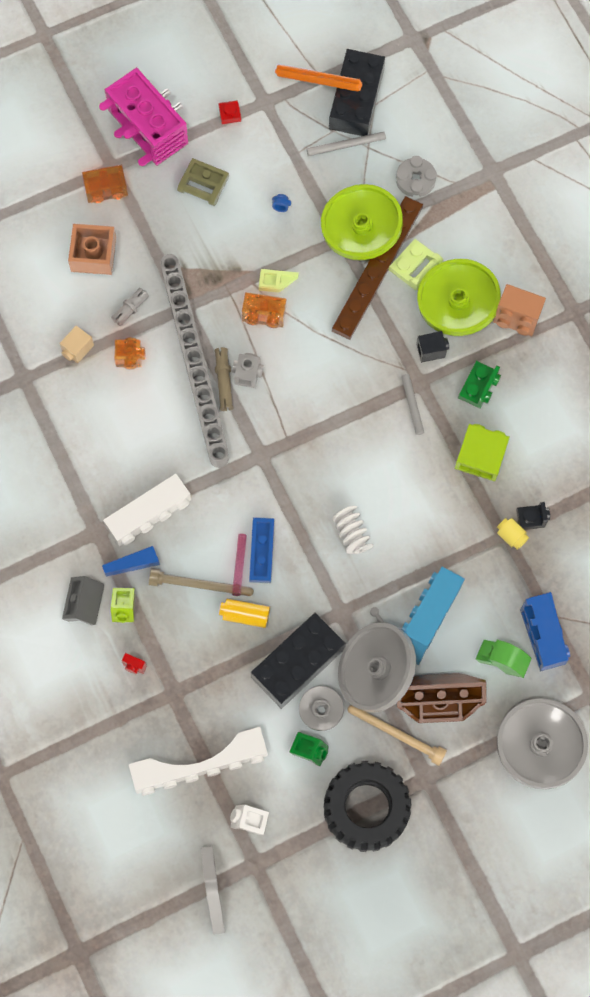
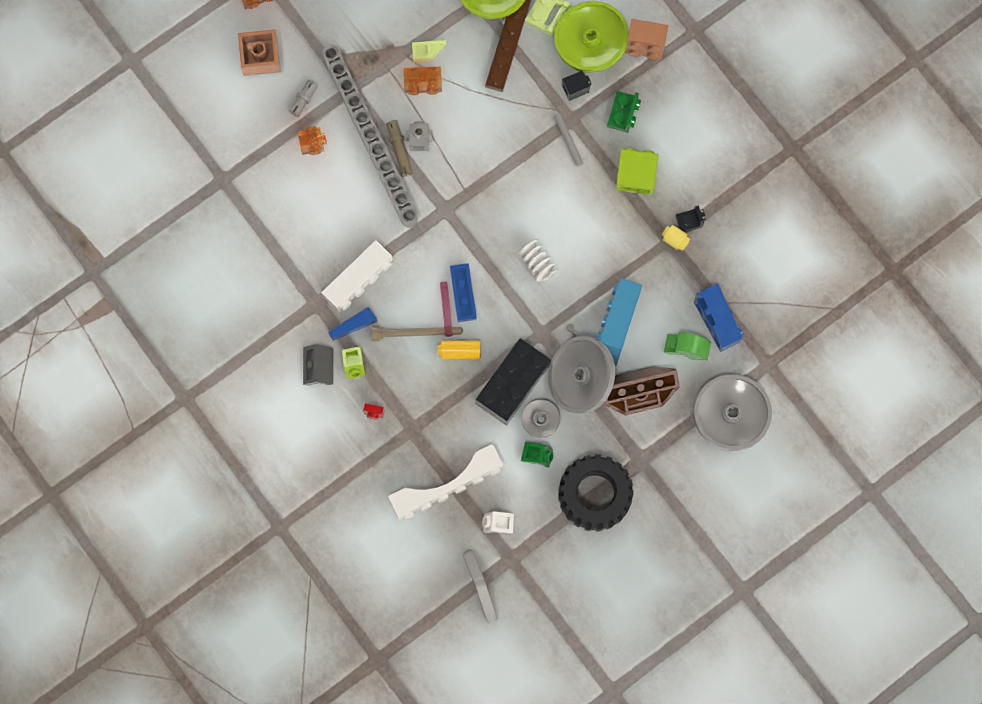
camera: 10 degrees left, 5 degrees up
(76, 344) = (263, 141): tan brick -> none
(434, 753) = (644, 438): tan piece -> none

